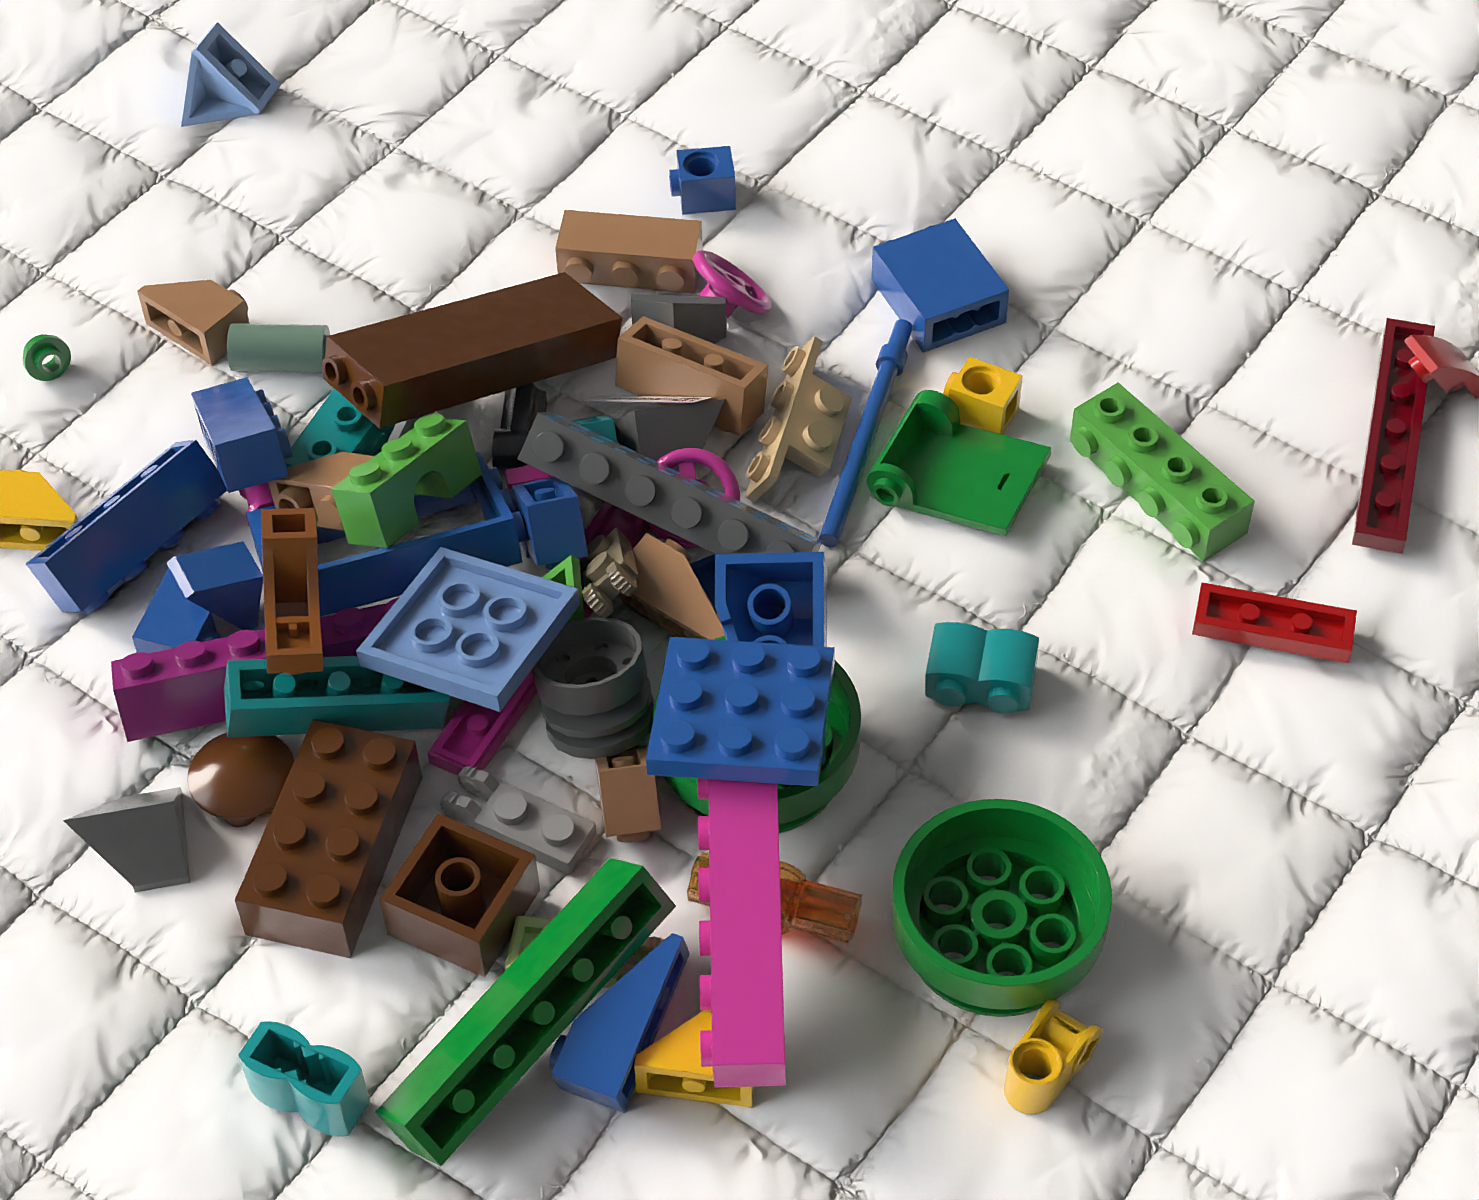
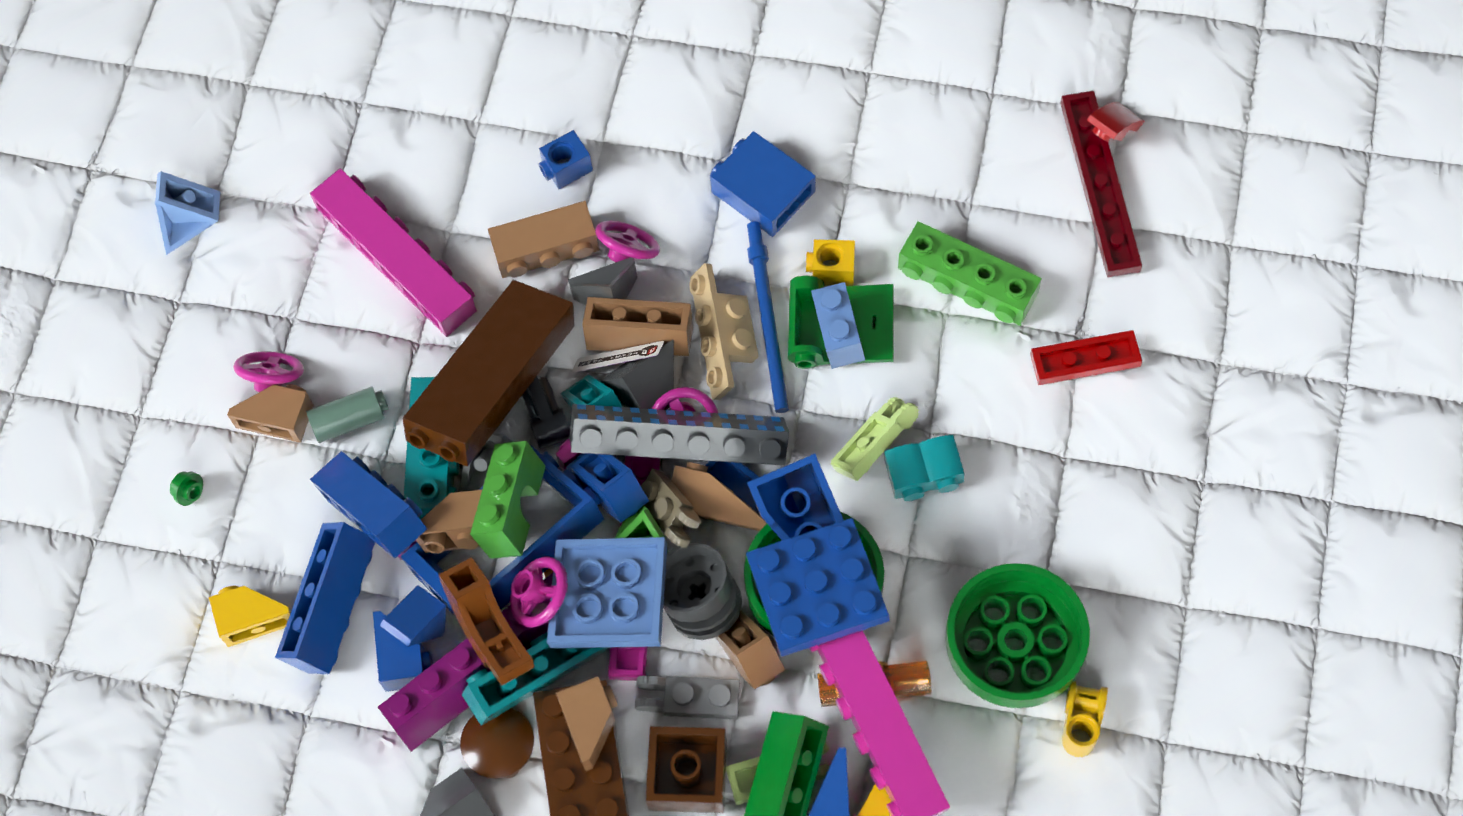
camera: 20 degrees left, 15 degrees up
(217, 266) = (268, 371): none -> dark pink piece
(359, 764) = (588, 717): none -> medium nougat slope
(375, 586) = (530, 590): none -> dark pink piece
(441, 199) = (394, 252): none -> dark pink brick
(897, 623) = (874, 438): none -> yellowish green hinge
(949, 461) = (838, 325): none -> medium blue brick

